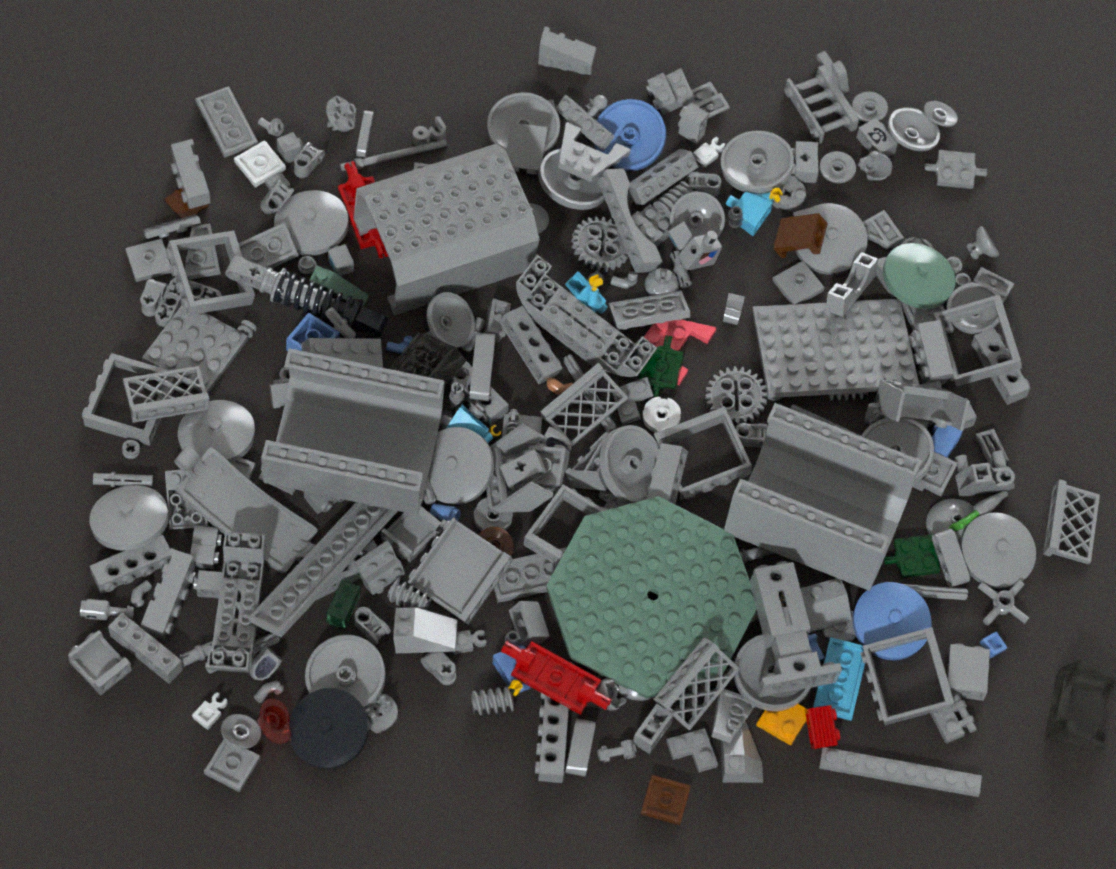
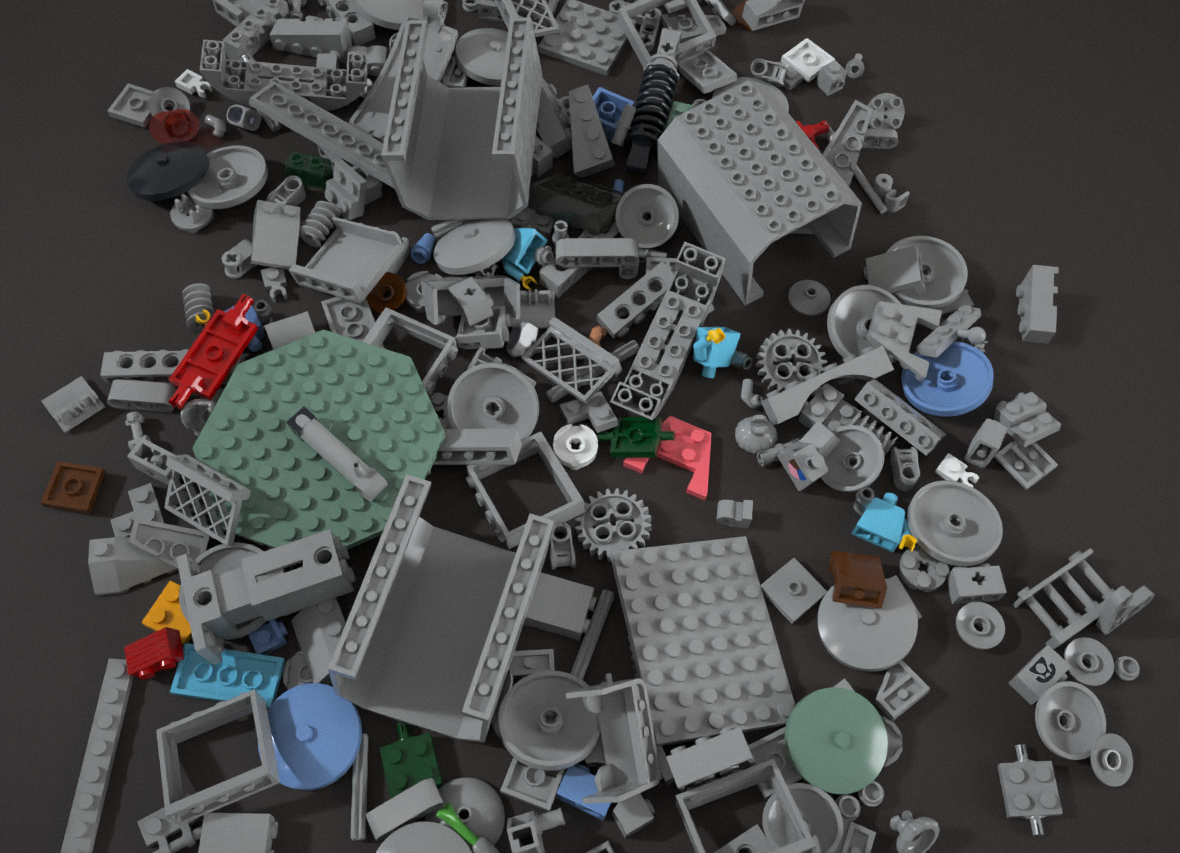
camera: 85 degrees right, 0 degrees up
(226, 121) = (850, 33): light grey tile -> none
(247, 328) = (614, 68): light grey bush -> none
(307, 160) = (820, 94): light grey piece -> none
(377, 152) = (847, 141): none -> light grey wing
(411, 533) = (391, 216): light grey panel -> none
(580, 806) = (73, 404): none -> light grey hinge
(649, 310) = (711, 418): light grey plate -> none
(650, 593) = (361, 476): none -> light grey piece
(843, 296) = (819, 662): light grey arch -> none
(874, 85) = (1126, 668): none -> light grey plate
(876, 166) = (997, 673): light grey hair -> none

